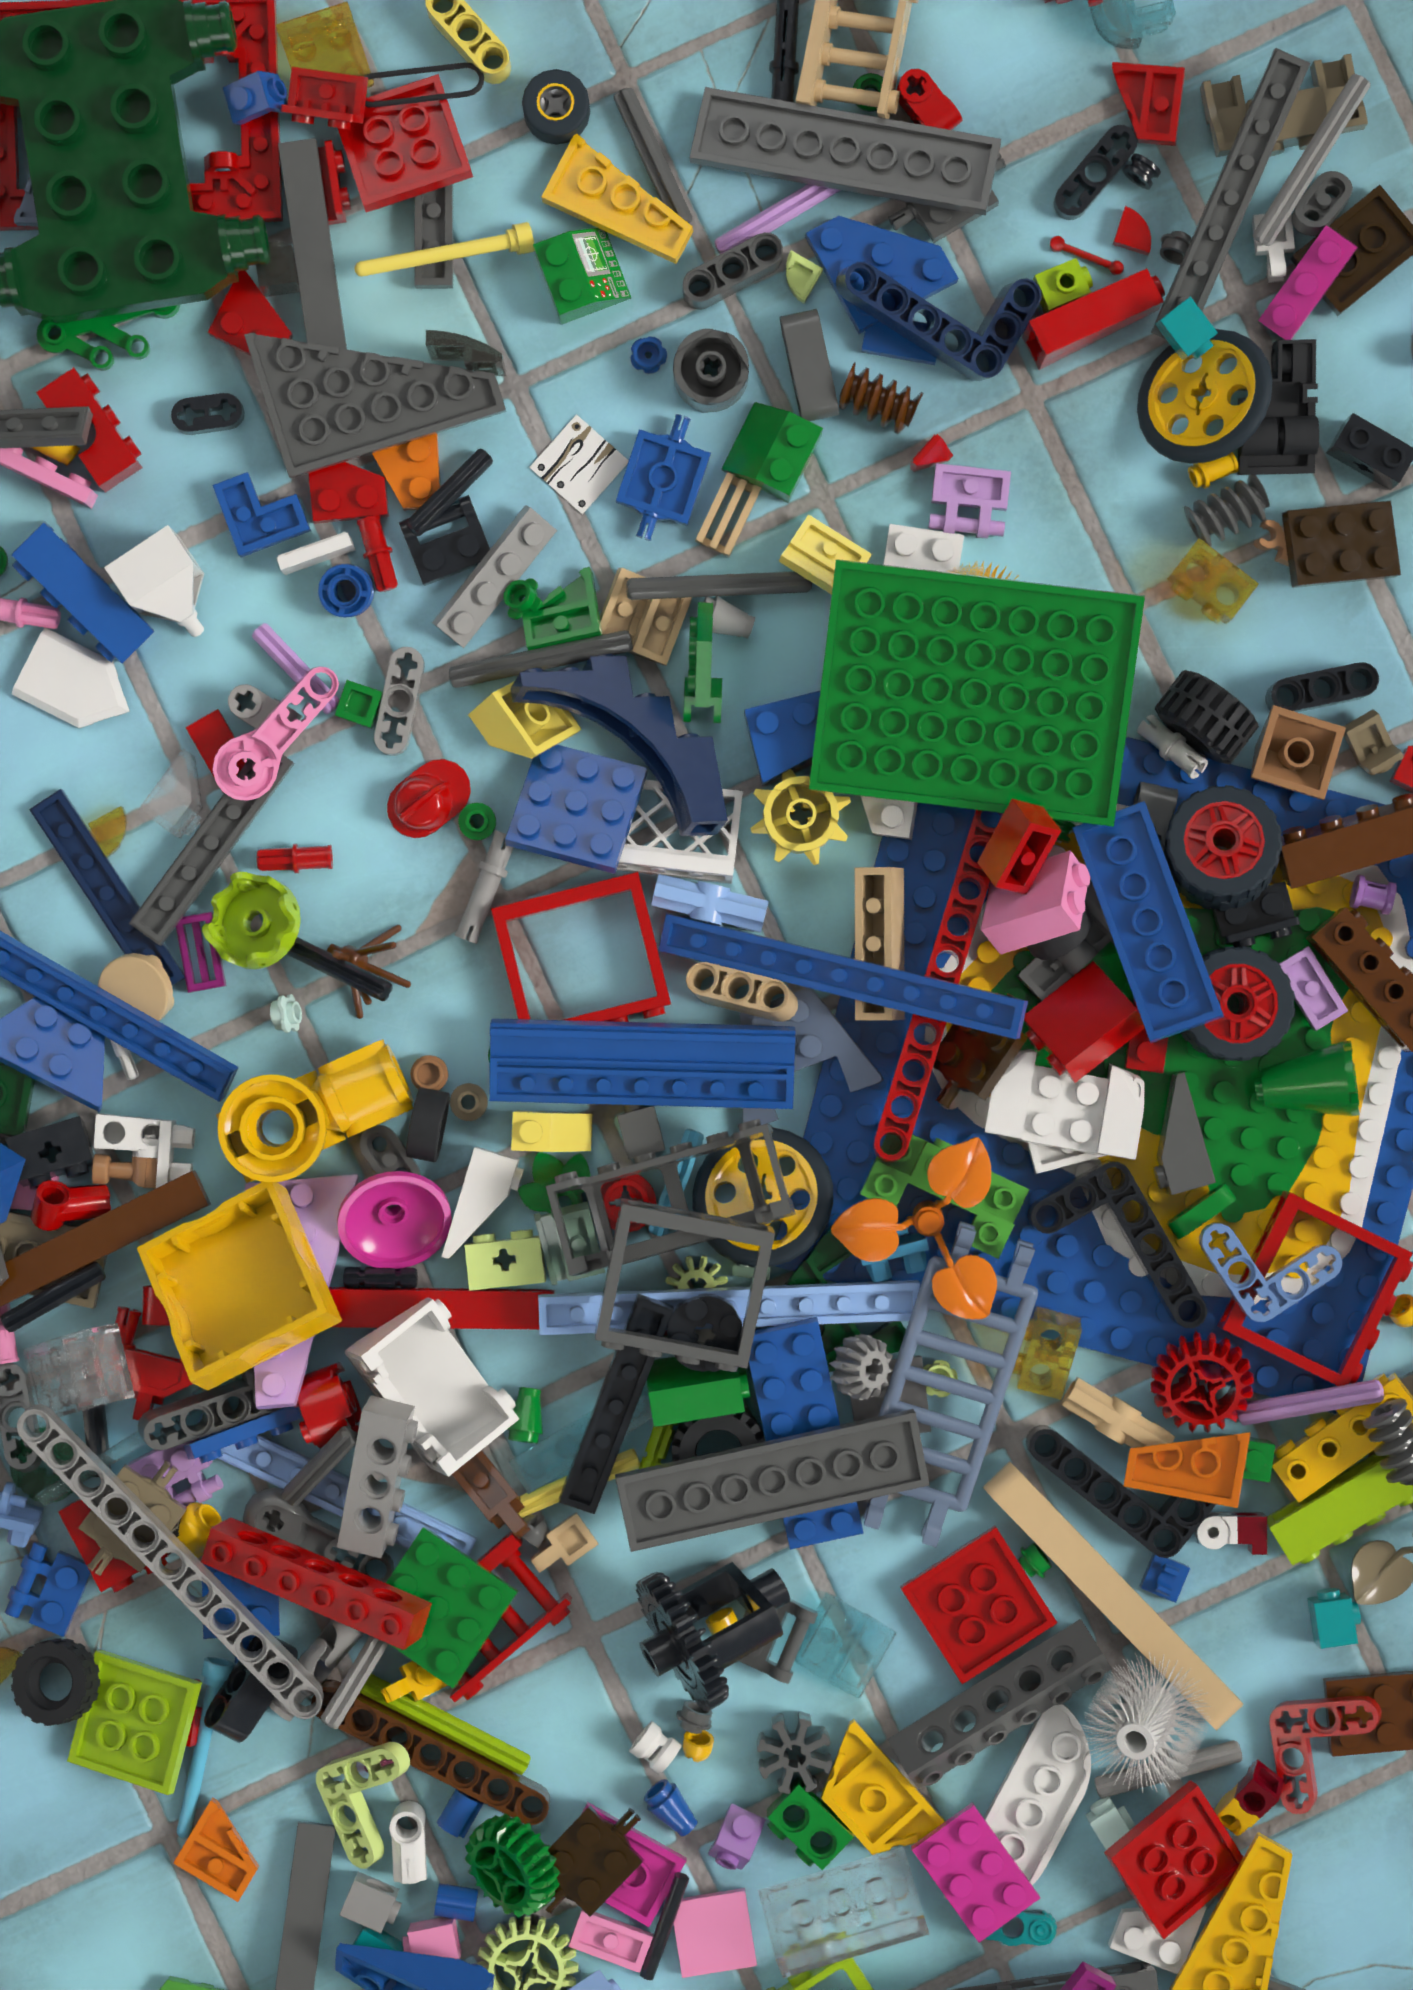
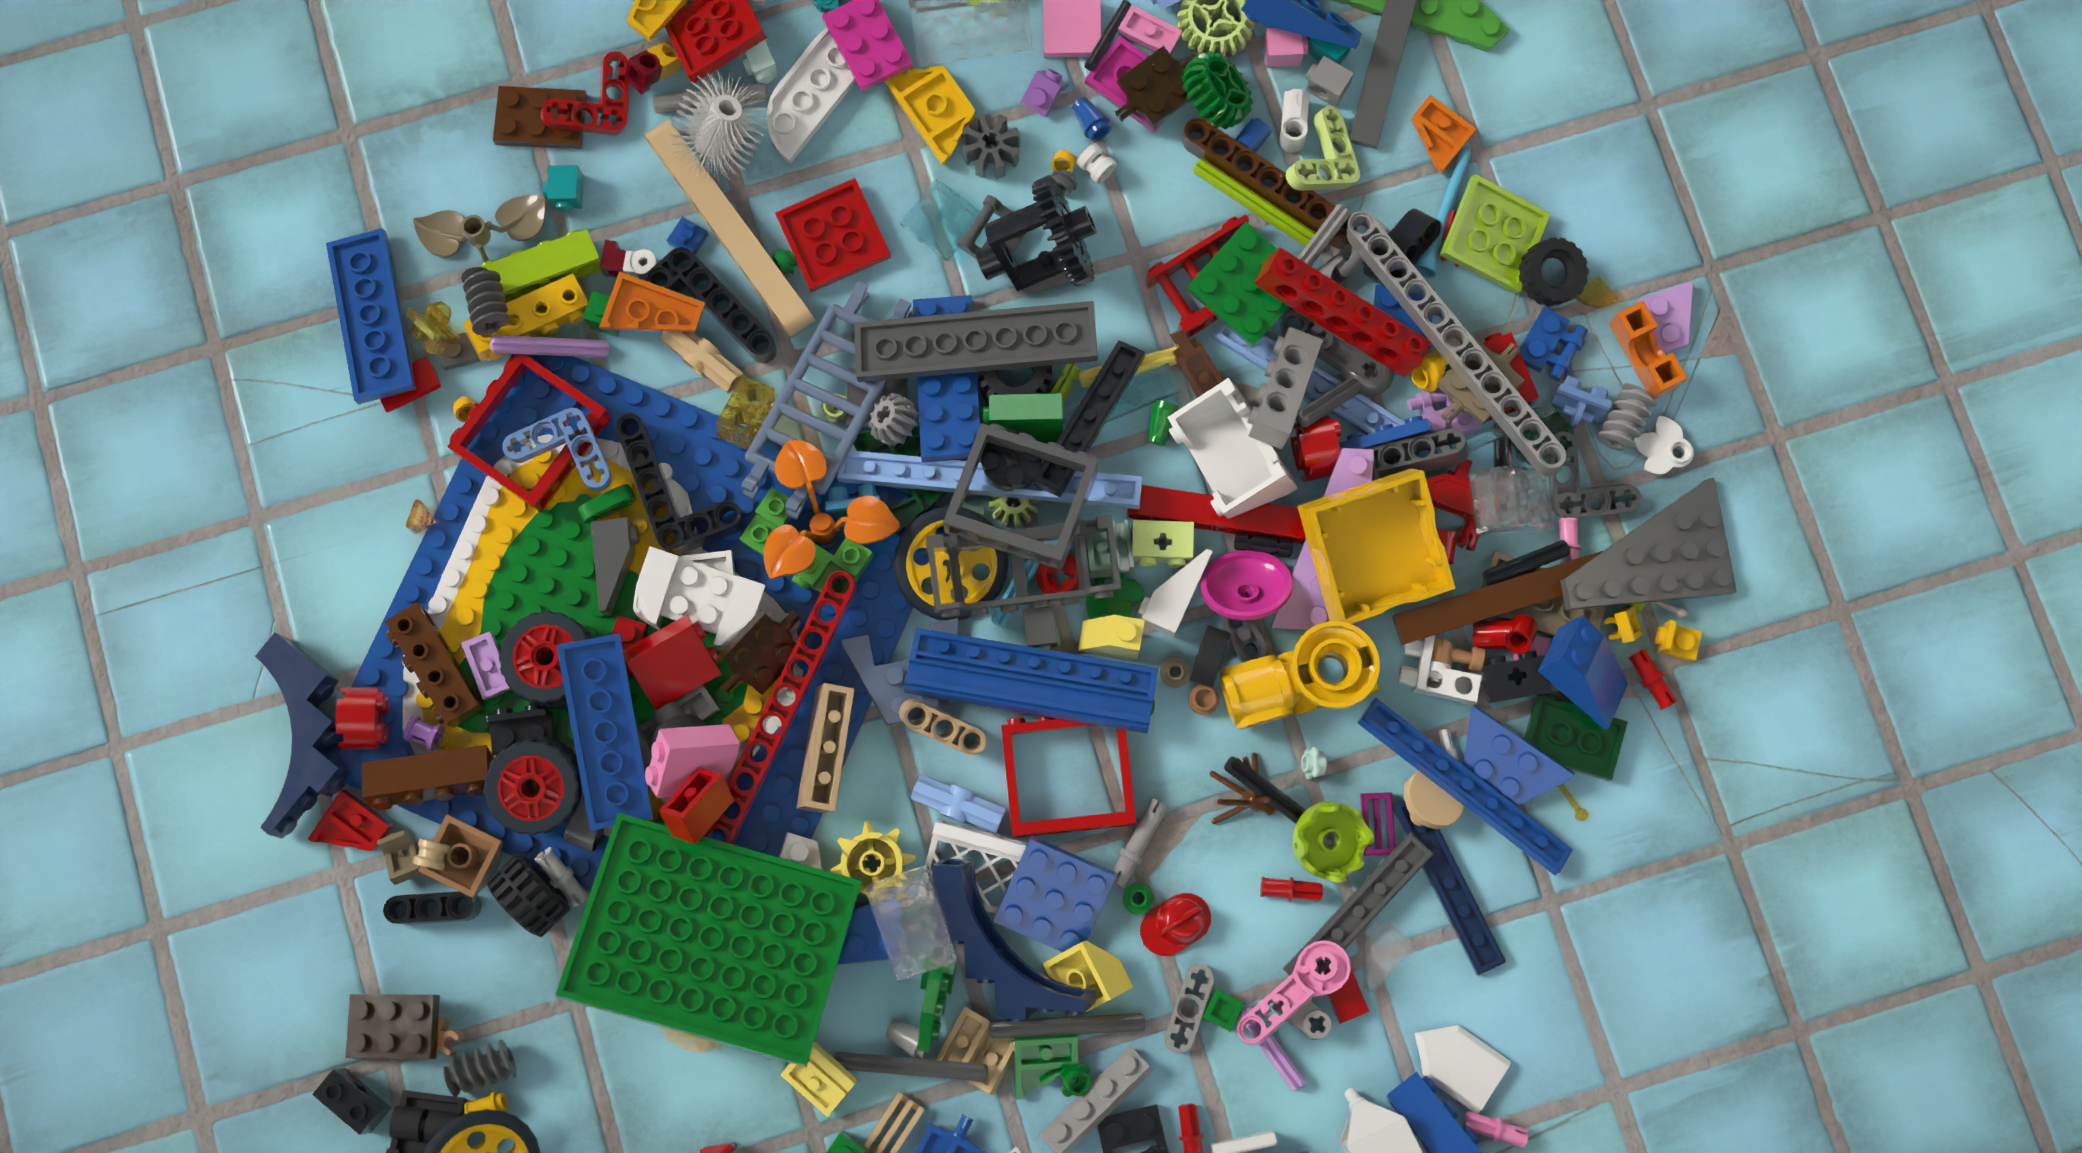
camera: 165 degrees left, 10 degrees down
(110, 830) = (1440, 934): clear yellow tile -> none
(328, 590) = (1229, 1095): blue wheel -> none
(415, 1680) = (1276, 234): yellow plate -> none
(456, 1902) = (1263, 73): blue piece -> none
(536, 1534) = (1164, 333): dark grey hinge -> none
(568, 1541) = (1142, 324): tan plate -> none
(720, 1620) = (1031, 247): yellow hinge -> none
(741, 748) = (911, 922): none -> clear slope
(816, 1818) = (983, 95): green brick -> none
(844, 976) = (857, 723): blue plate -> none
(923, 548) = (739, 1071): white wing -> none
(969, 488) = (688, 1119): lavender plate -> none
(980, 1701) = (872, 150): dark grey brick -> none
(1176, 1397) = (616, 385): red gear -> none
(1217, 573) = (499, 1017): clear yellow brick -> none
(1313, 1082) = (499, 590): green cone -> none
(1331, 747) = (431, 854): none -> tan wheel

